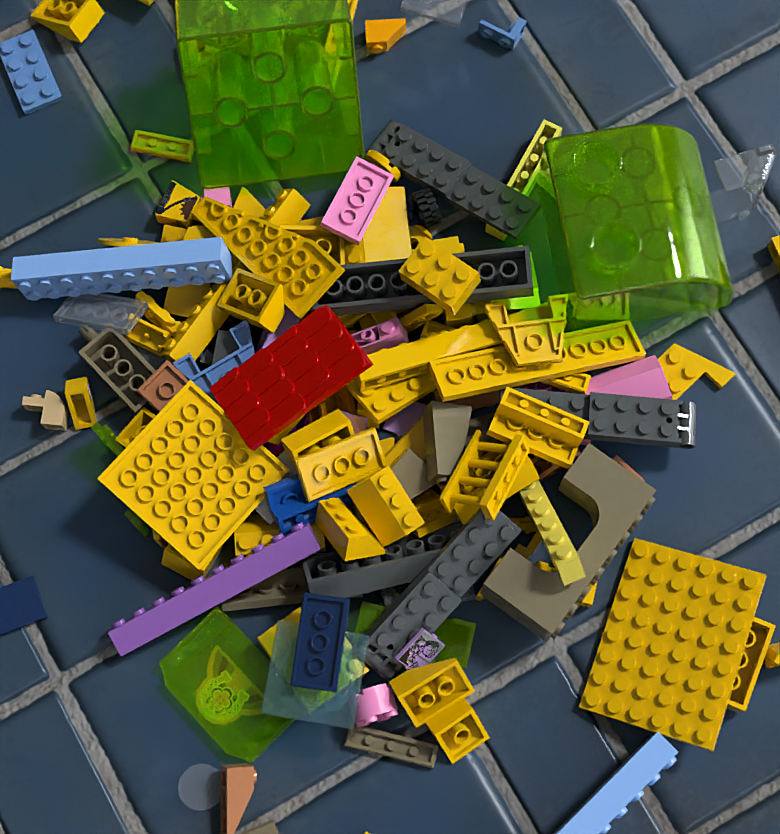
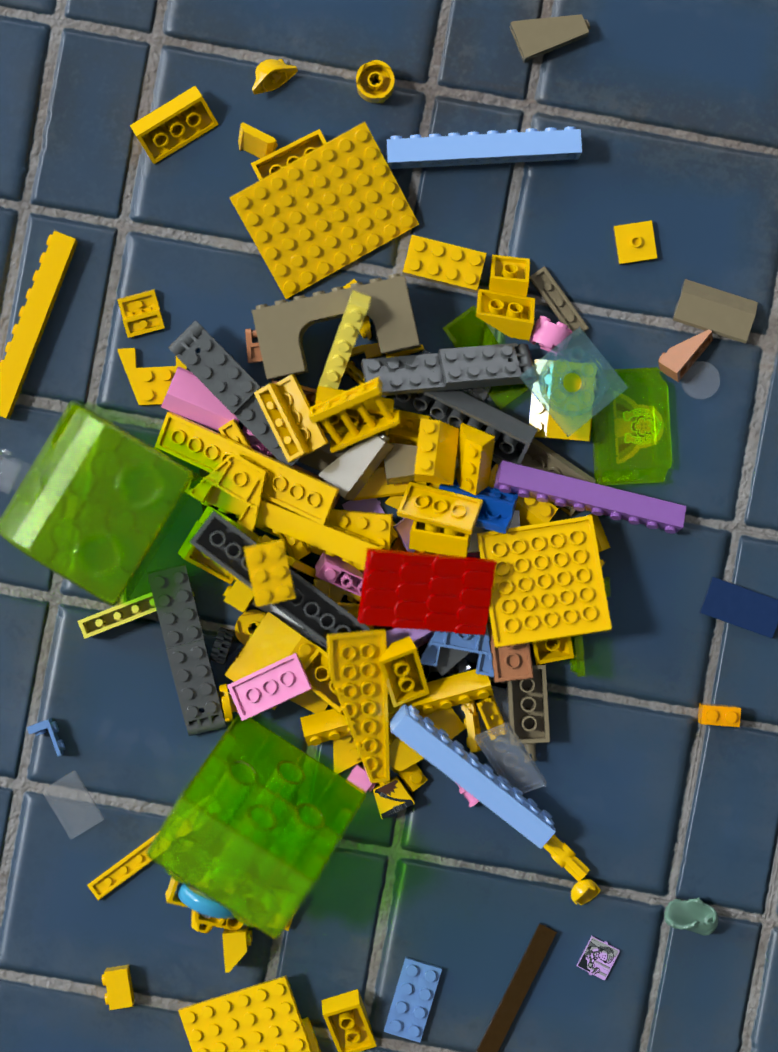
camera: 140 degrees left, 15 degrees up
(53, 409) = (596, 717): tan brick -> none
(80, 402) = (574, 708): yellow slope -> none
(126, 241) = (450, 793): yellow piece -> none
(162, 146) = (364, 856): yellow tile -> none
(320, 642) = (554, 397): dark blue tile -> none
(383, 34) = (136, 808): light orange slope -> none
(420, 650) = (492, 342): piece -> none
(525, 688) = (444, 263): none -> yellow brick
(744, 420) = (141, 313): none -> yellow slope
(745, 812) = (369, 72): none -> yellow brick

